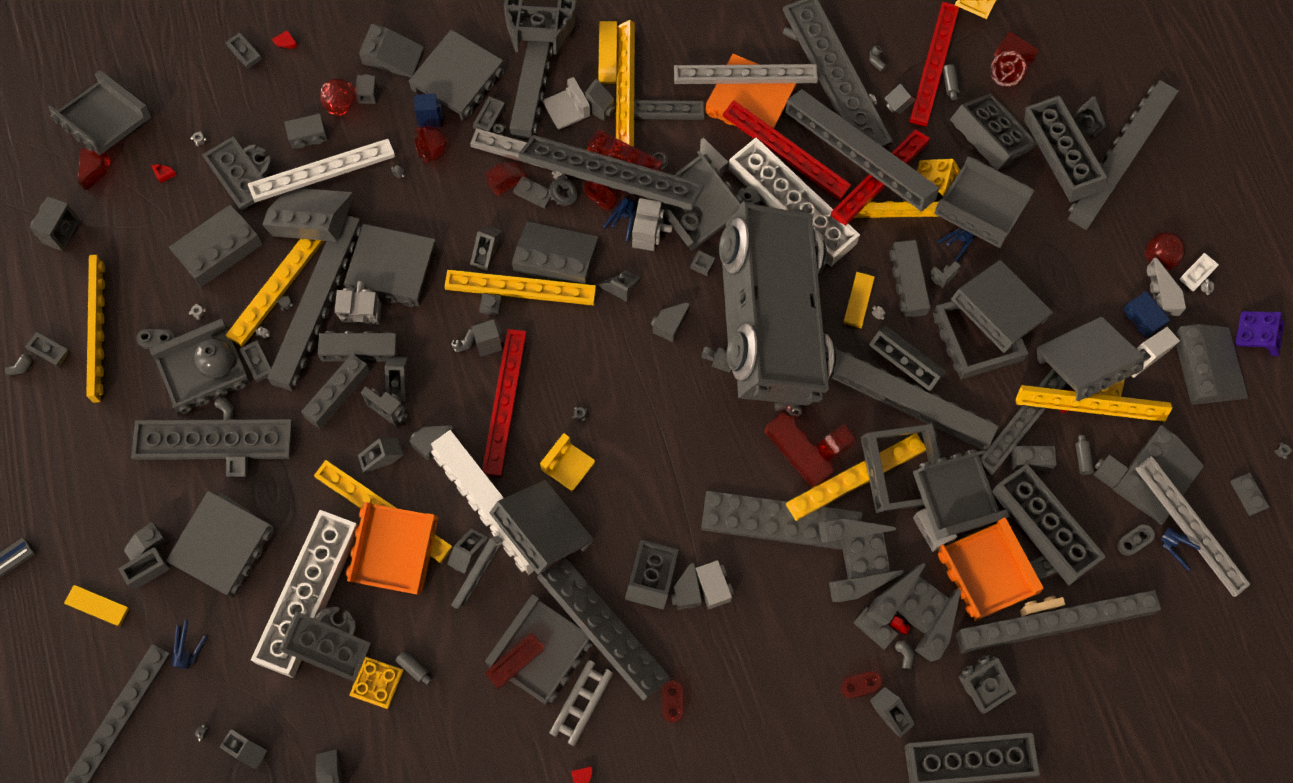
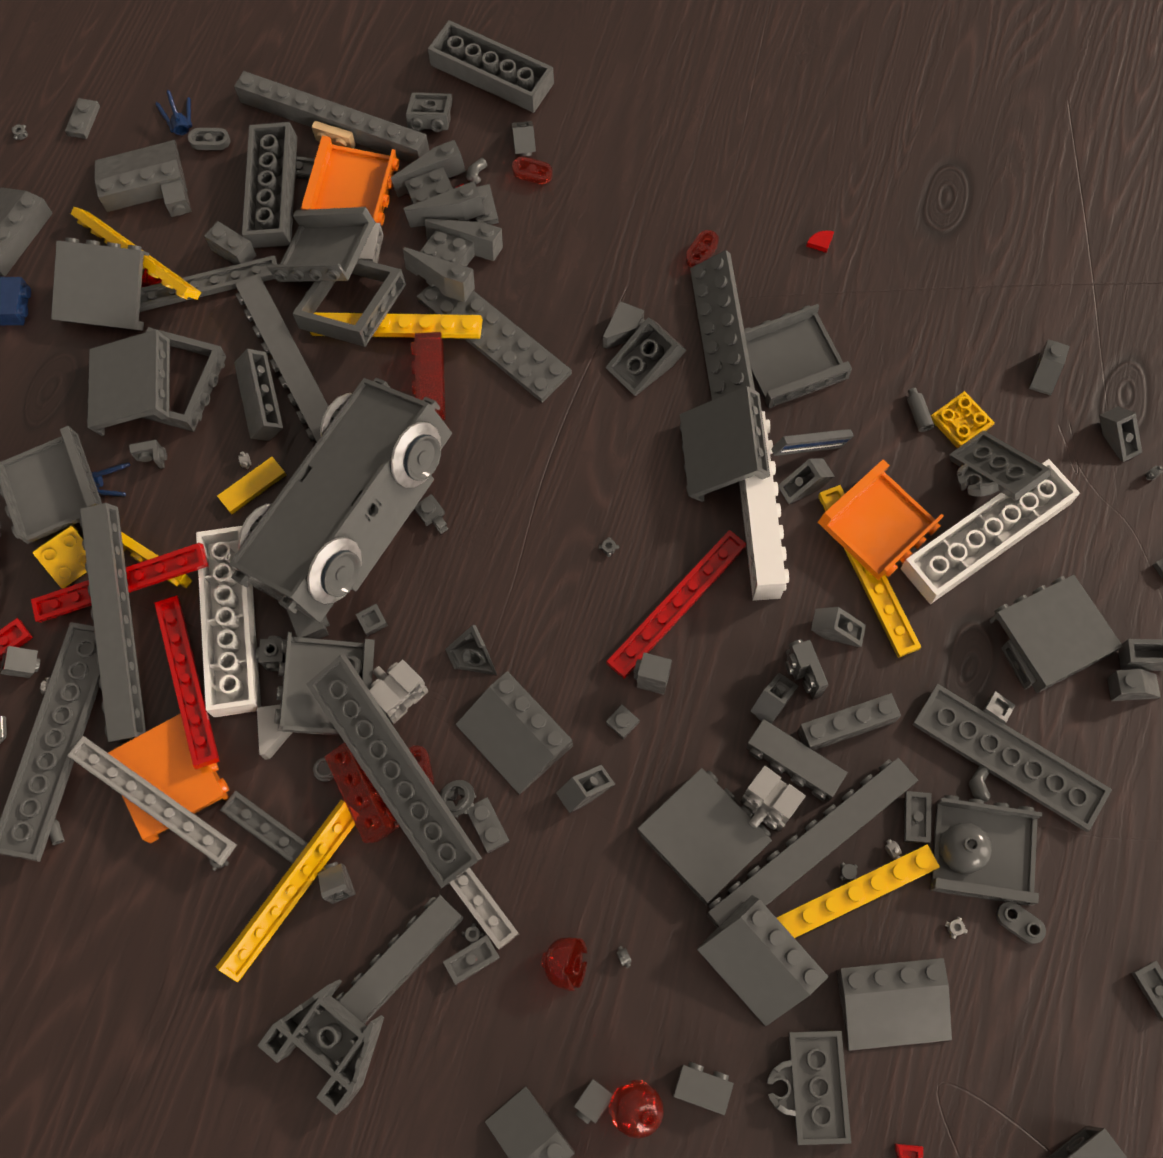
camera: 140 degrees left, 0 degrees up
(95, 333) = (1085, 989): yellow plate -> none
(182, 658) = (1143, 550): dark blue plant -> none
(321, 170) = (716, 1014): white plate -> none
(422, 439) = (777, 609): dark grey slope -> none
(428, 110) = (540, 1006): dark blue brick -> none
(458, 73) = (471, 1043): dark grey panel -> none
(461, 345) = (677, 693): dark grey arm -> none
(503, 176) = (506, 863): clear red slope -> none
(514, 661) = (822, 356): clear red plate -> none
(520, 287) = (580, 718): yellow plate -> none
(566, 463) = (656, 503): yellow bracket -> none
(567, 105) = (374, 908): light grey bracket -> none
(568, 707) = (786, 285): light grey bar -> none
(607, 52) = (271, 955): yellow slope -> none
(624, 210) = (405, 728): dark blue plant -> none
(670, 321) = (451, 578): dark grey slope -> none
(713, 584) = (597, 314): light grey brick -> none
(836, 443) = (391, 364): clear red slope -> none
(910, 279) = (186, 470): dark grey brick -> none
(1084, 456) = (184, 224): dark grey cylinder -> none
(1157, 347) = (33, 264): white slope -> none
(1192, 526) = (154, 116): light grey tile -> none

